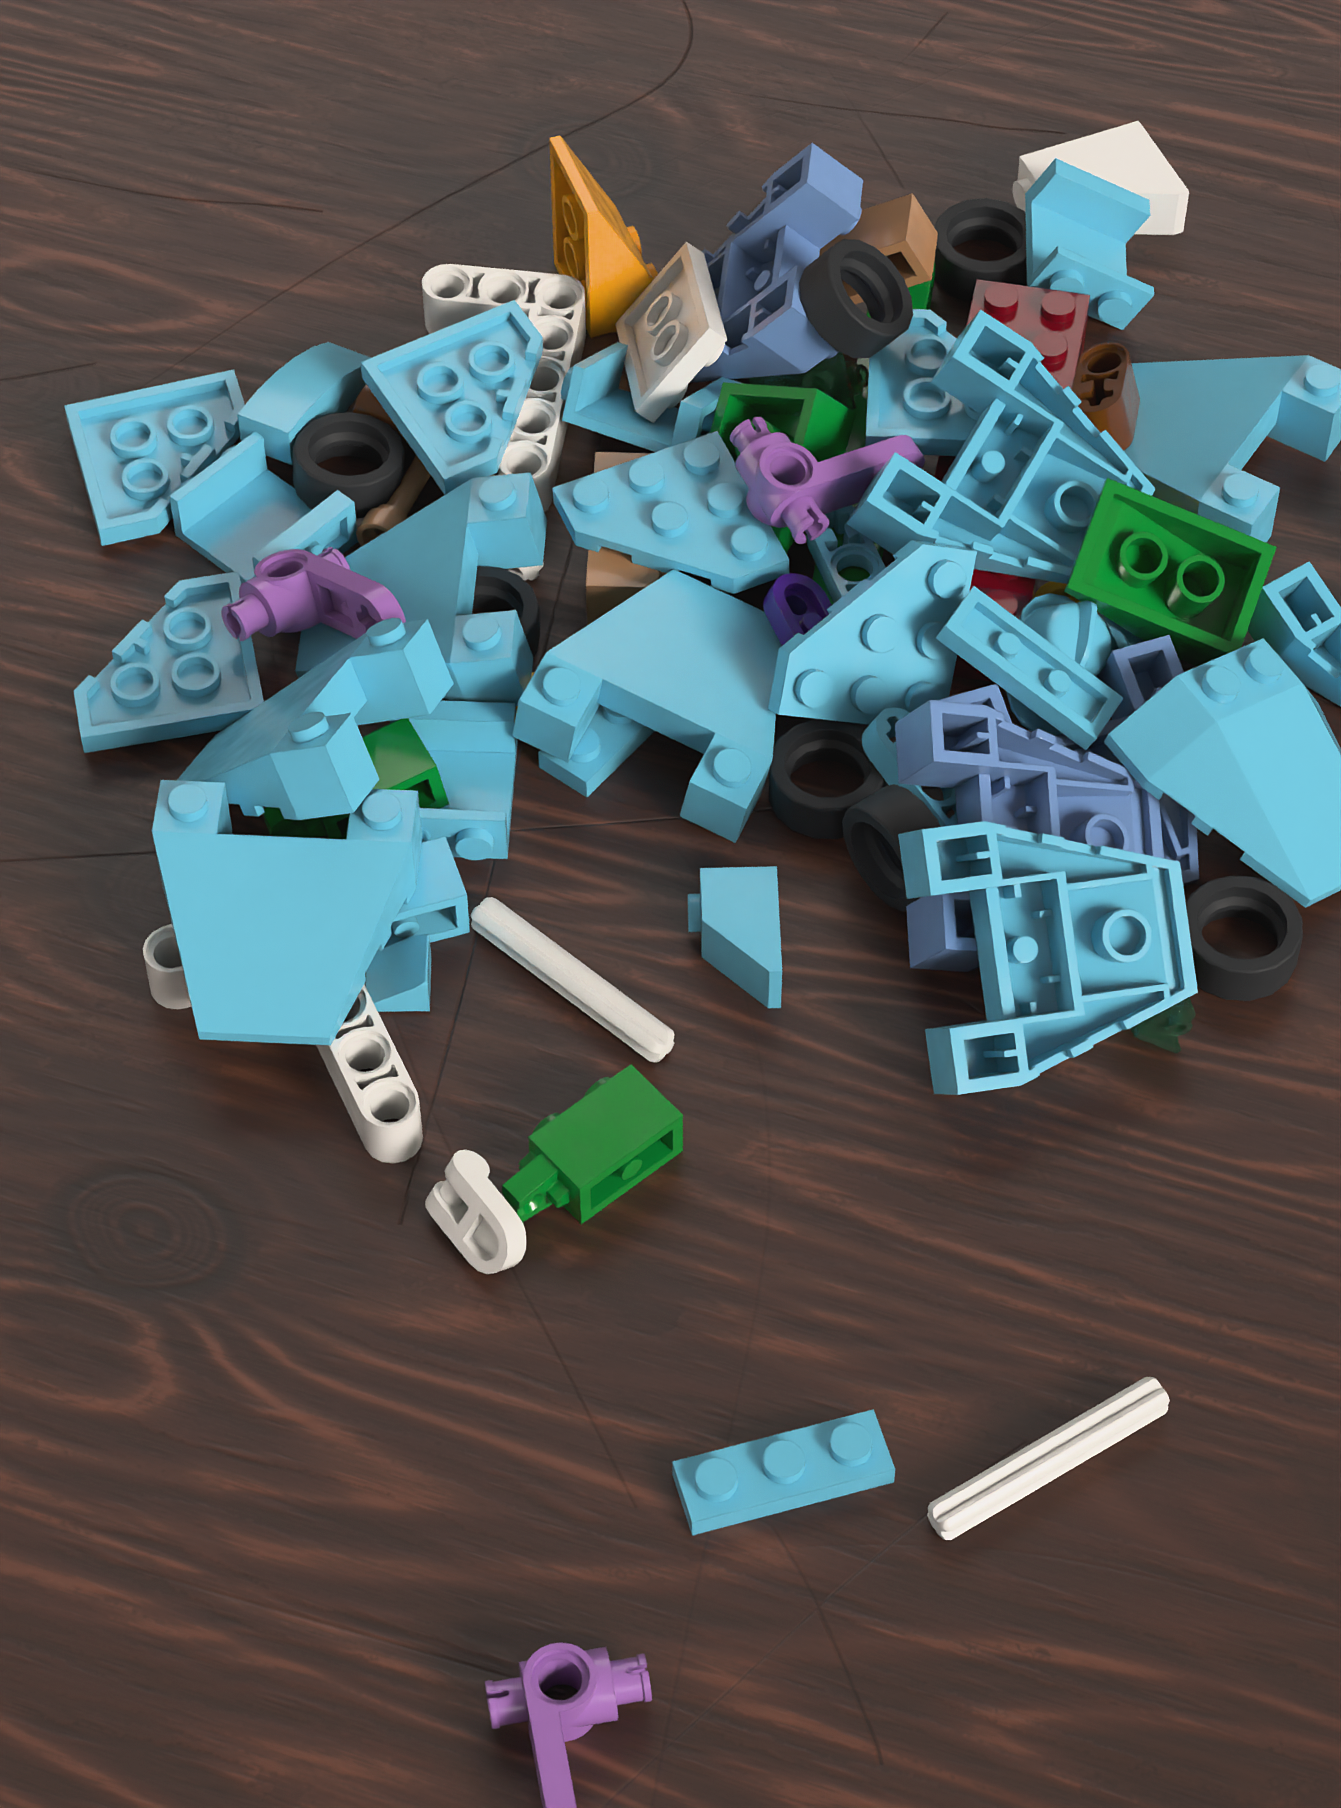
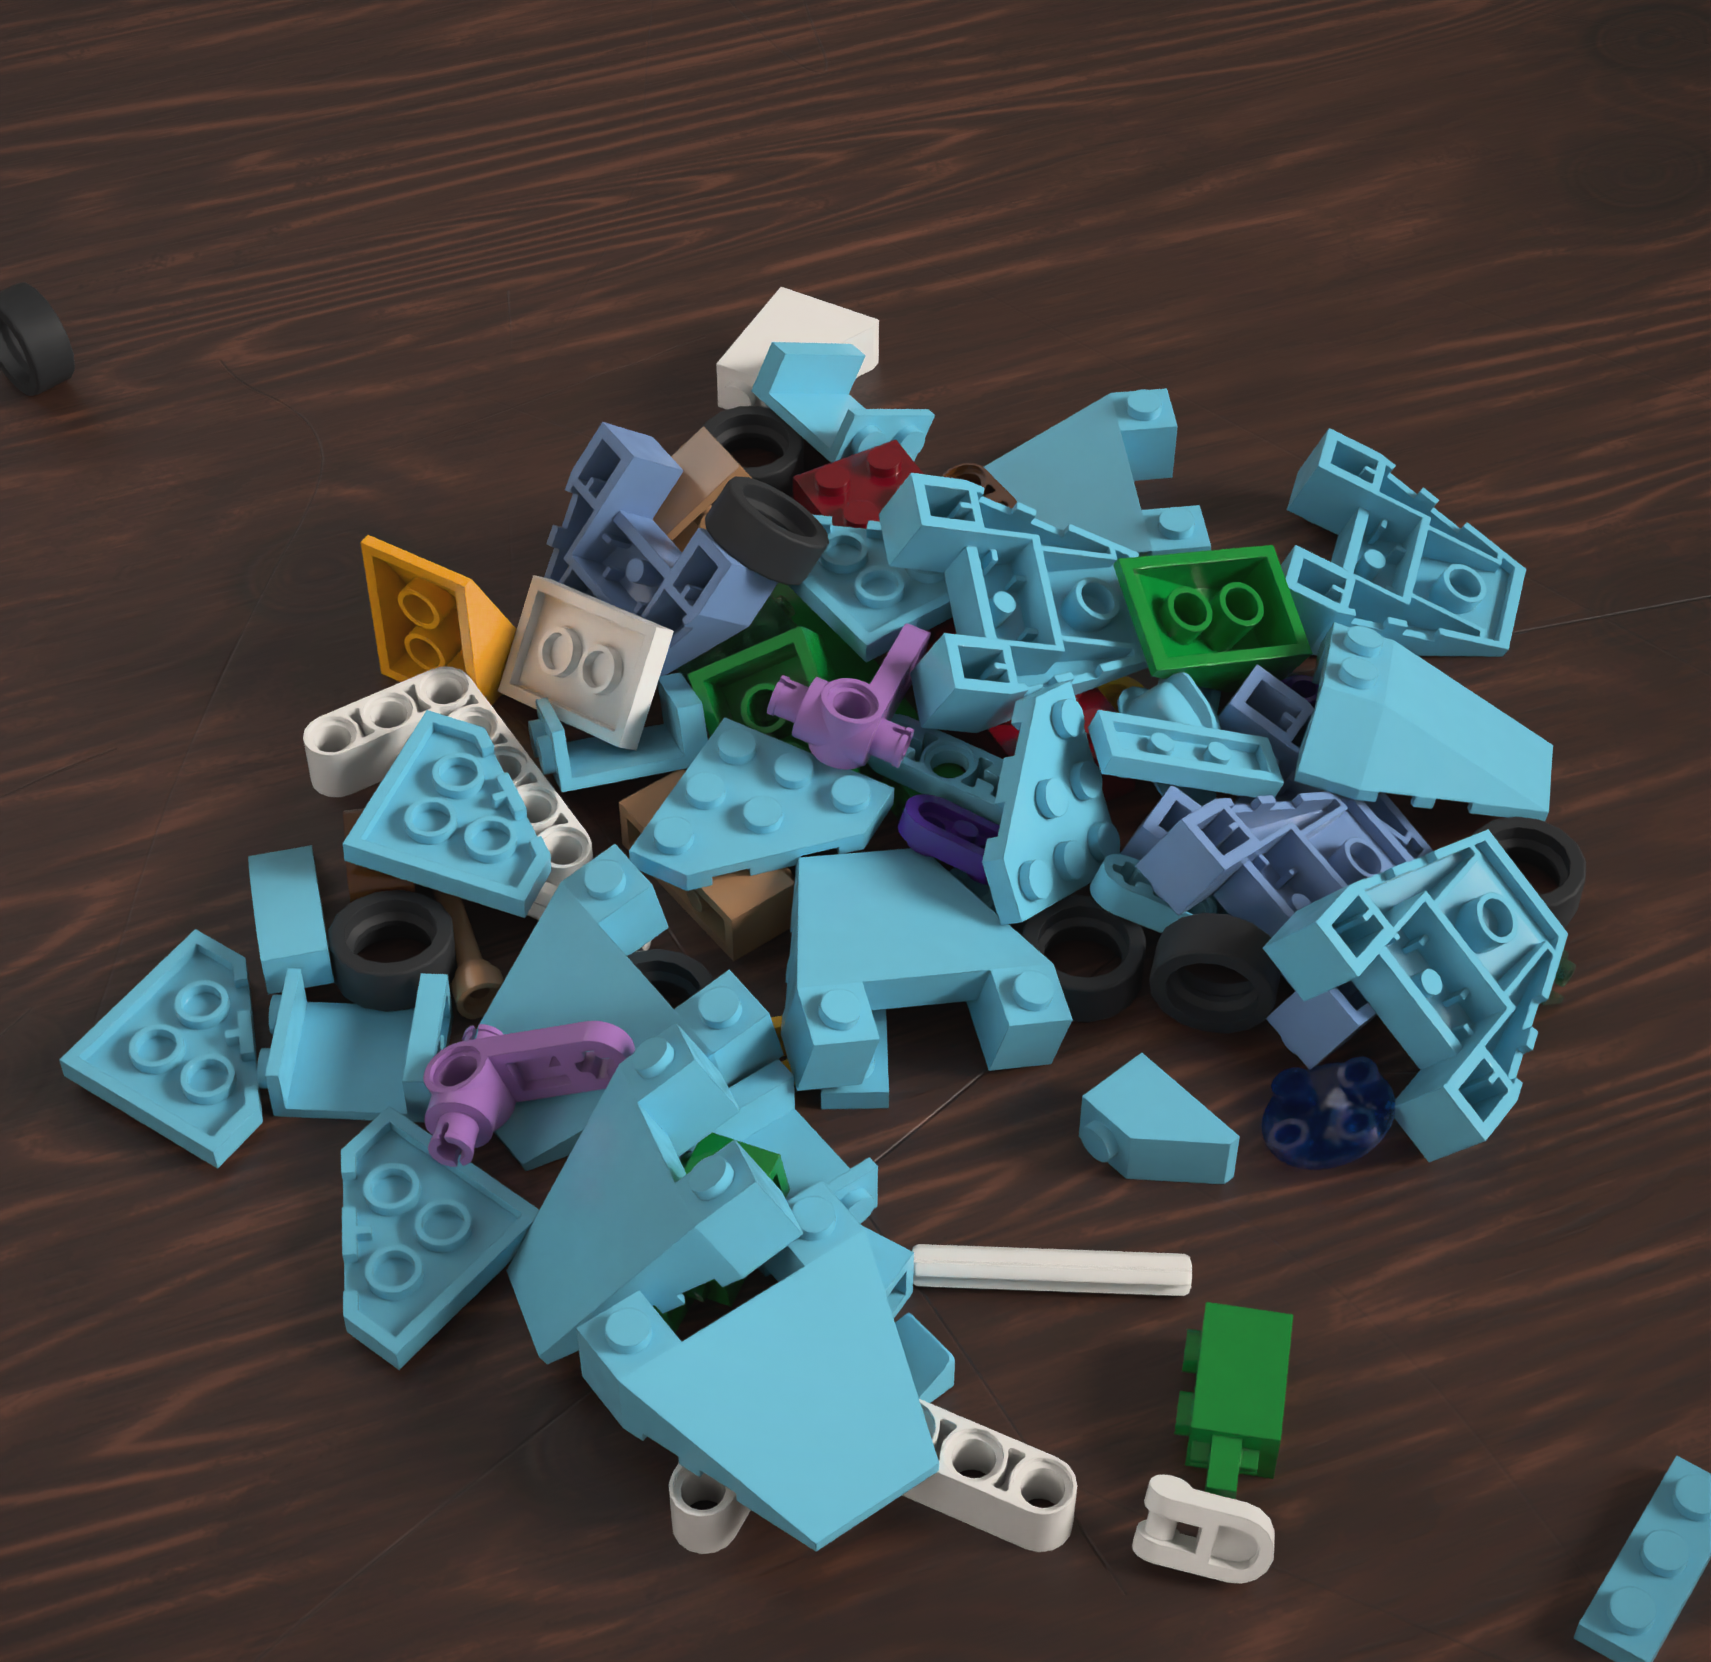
camera: 40 degrees left, 5 degrees down
(884, 1005) = (1327, 1114): none -> clear blue dish

